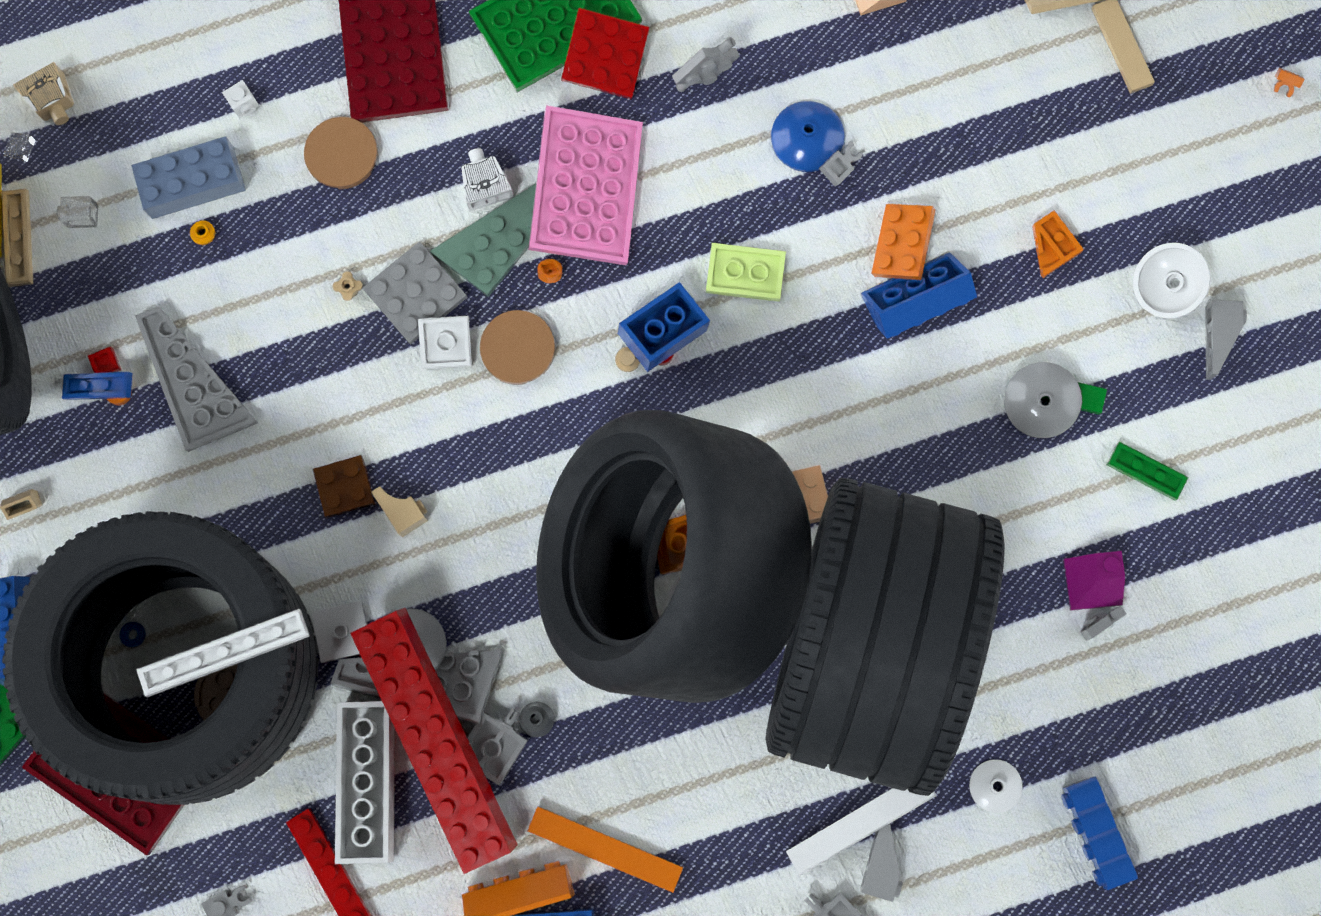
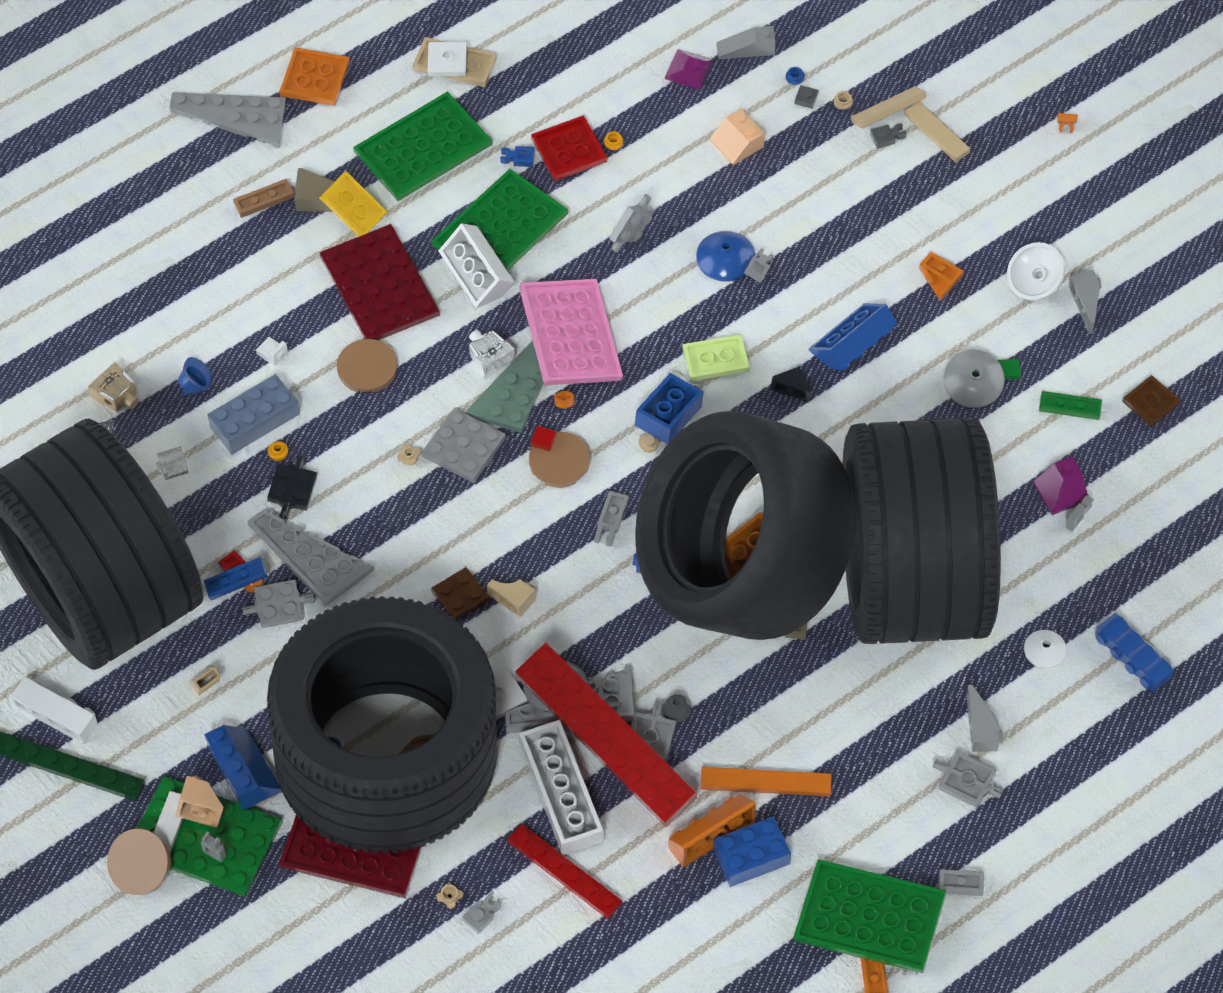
camera: 25 degrees left, 20 degrees down
(136, 431) = (278, 604): none -> light grey plate
(140, 106) = (194, 377): none -> blue piece
(190, 870) = (445, 891): none -> tan plate
(202, 284) = (292, 487): none -> black plate
(222, 653) = (440, 672): white tile -> none
(445, 342) = (502, 470): white plate -> none
(505, 63) = (476, 265): none -> white slope
(505, 317) = (543, 438): none -> red tile
(549, 443) = (611, 516): none -> light grey hinge
(605, 53) = (549, 240): red plate -> none
(823, 337) = (792, 384): none -> black slope
(854, 828) = (954, 696): white tile -> none
(903, 241) = (827, 303): orange plate -> none
(1056, 31) = (885, 136): none -> dark grey plate
(1248, 499) = (1151, 401): none -> reddish brown plate

